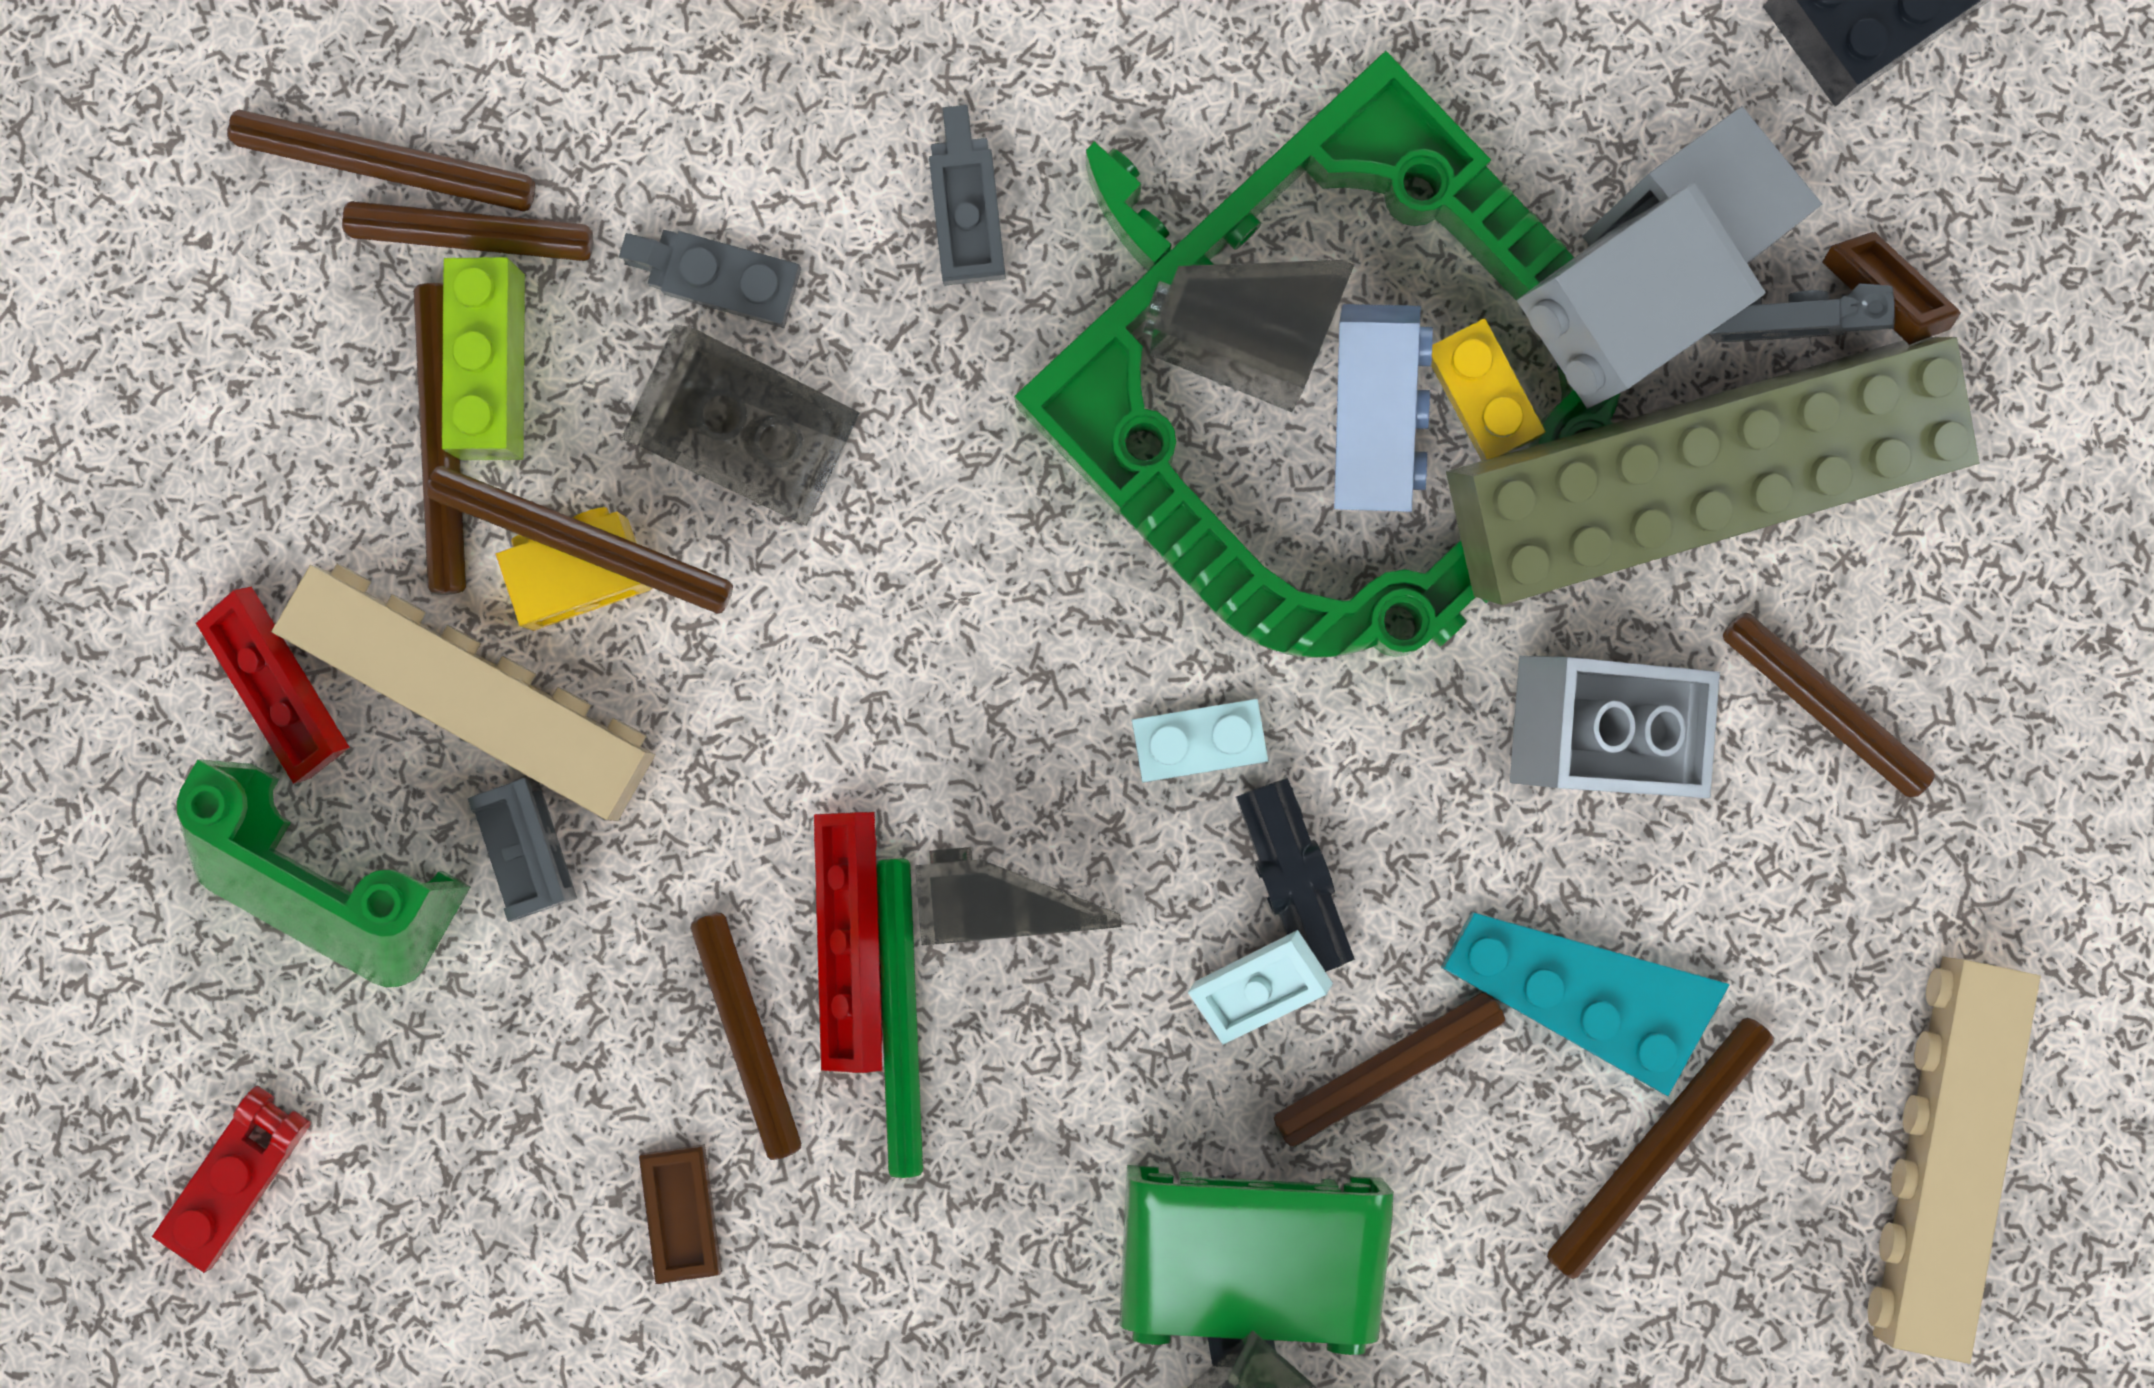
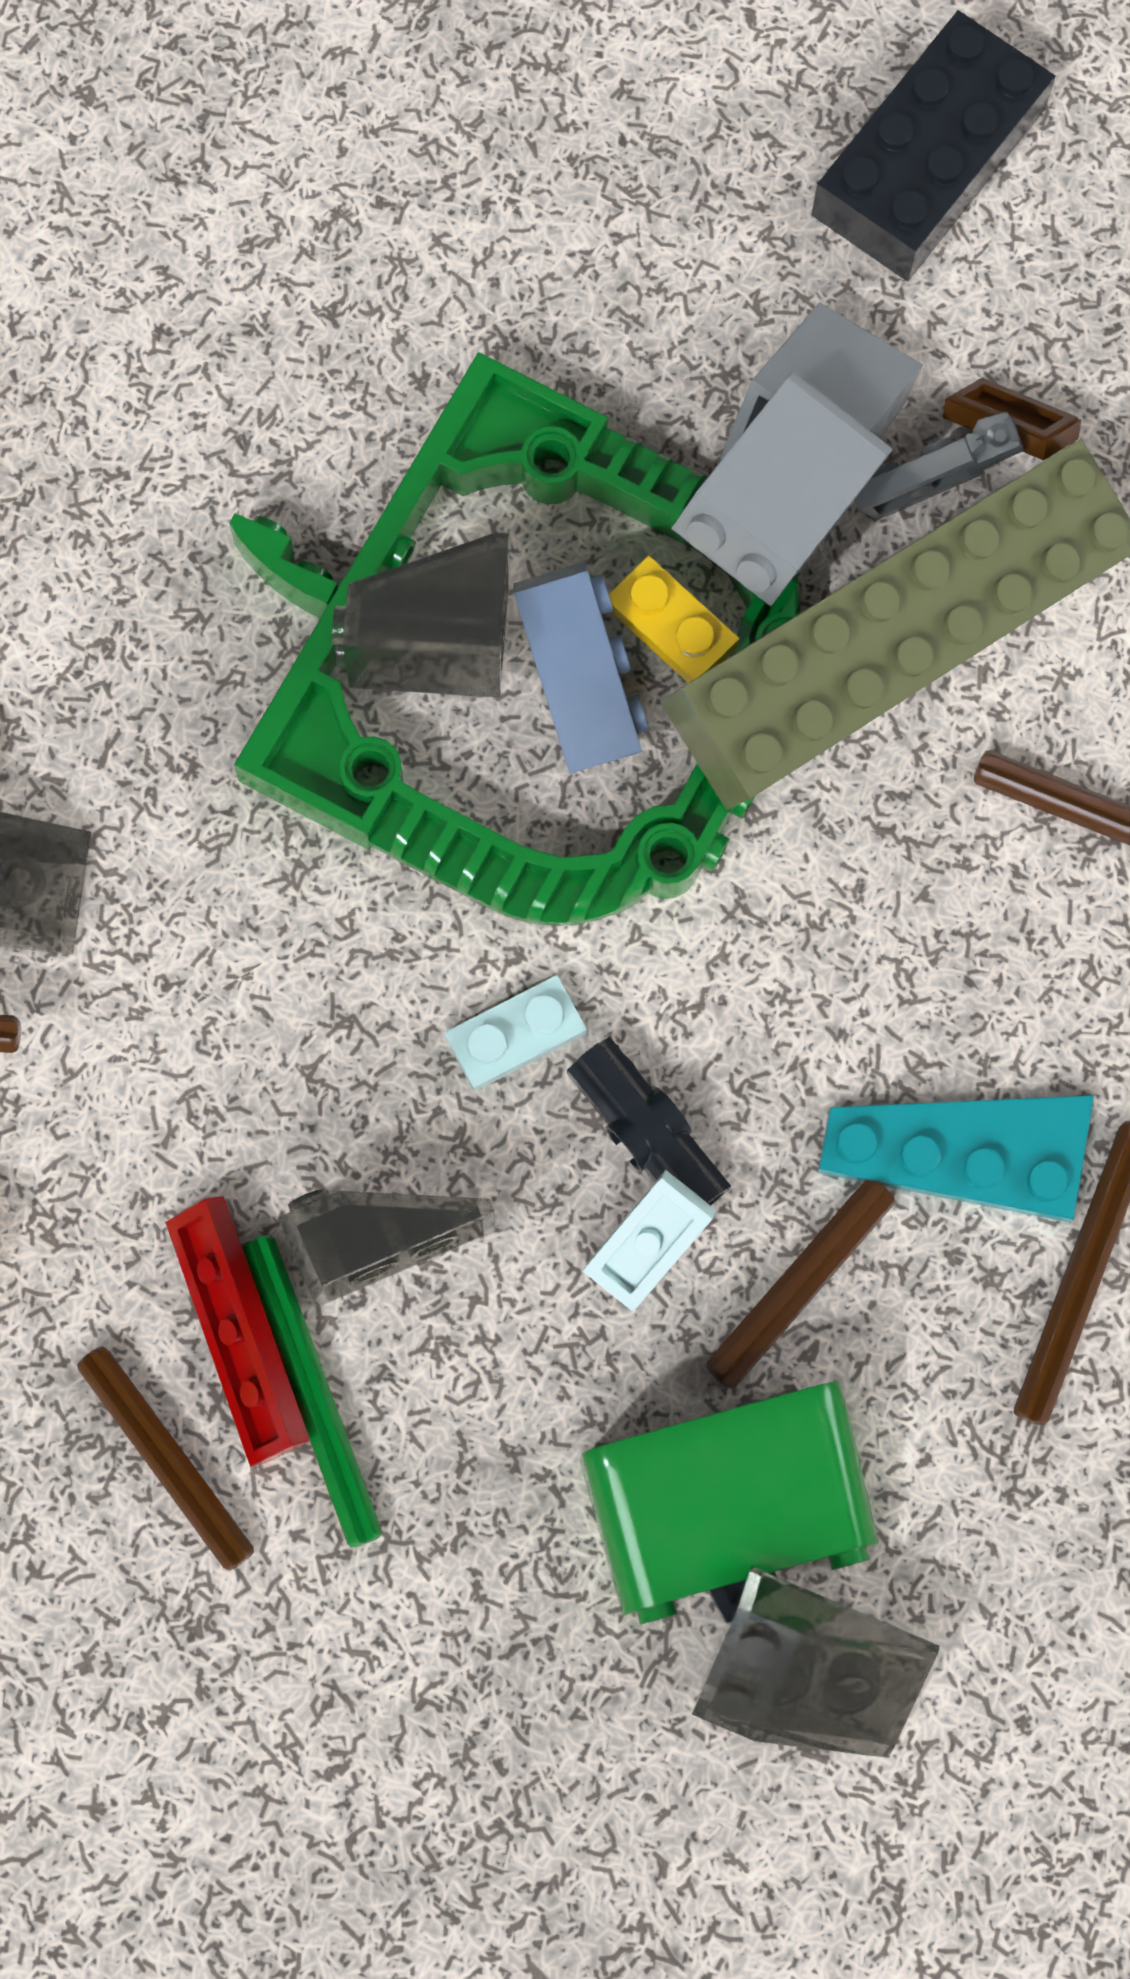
camera: 25 degrees left, 10 degrees down
(680, 1214) = (154, 1656): reddish brown tile -> none
(965, 204) = (132, 610): dark grey hinge -> none
(1614, 726) = (900, 891): light grey slope -> none

